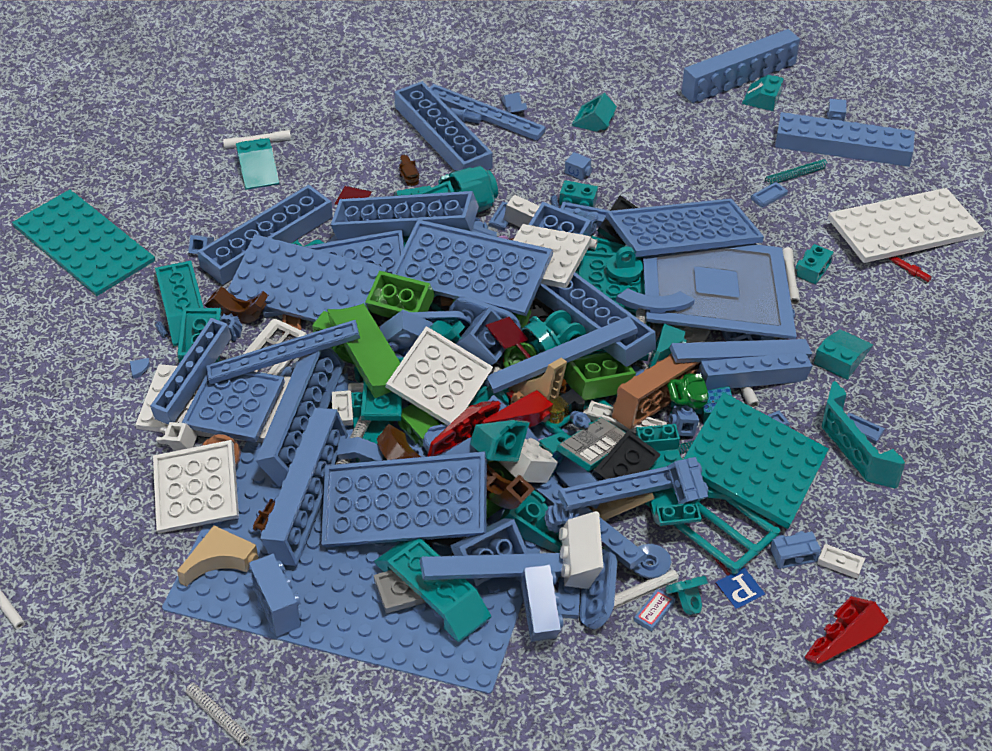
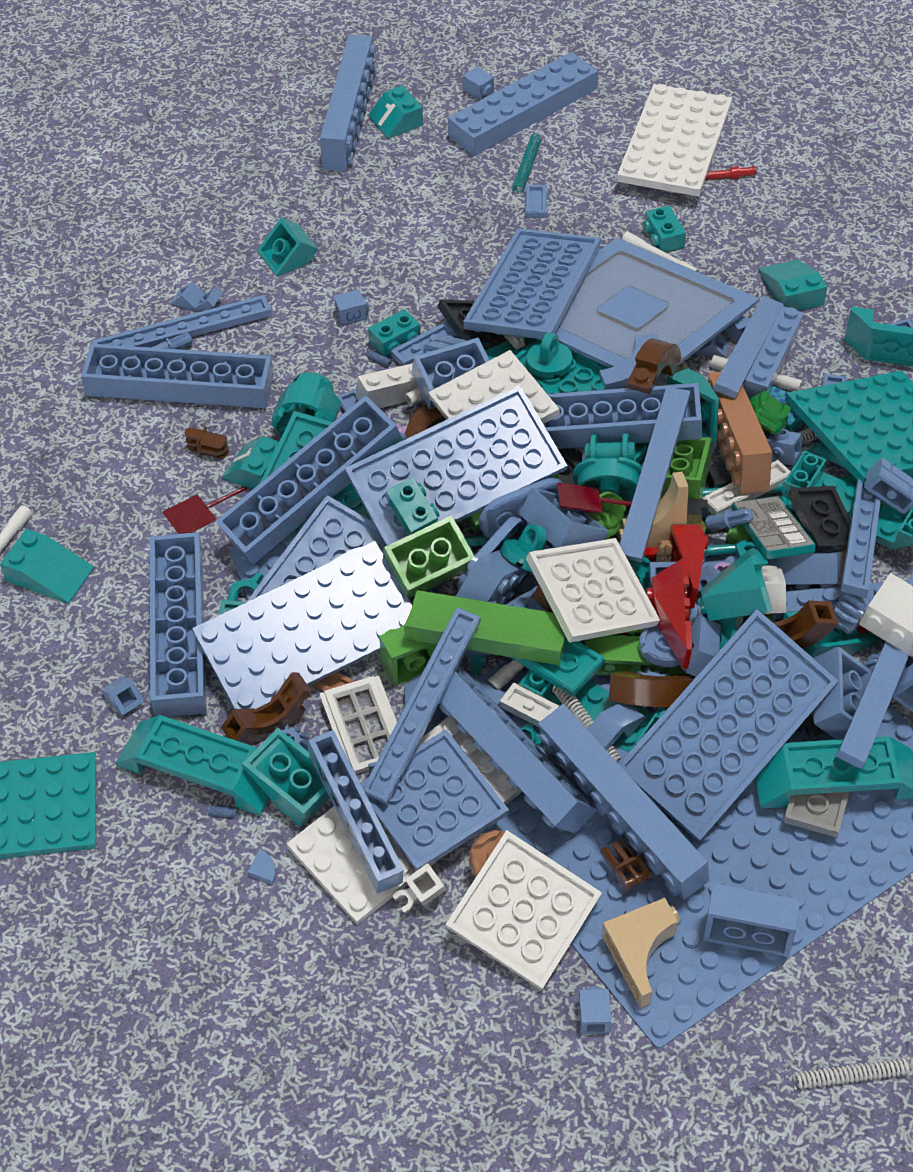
camera: 50 degrees left, 5 degrees up
(159, 561) = (594, 1010): none -> medium blue brick
(419, 262) = (411, 506): none -> teal brick
(654, 298) = (651, 360): none -> reddish brown arch

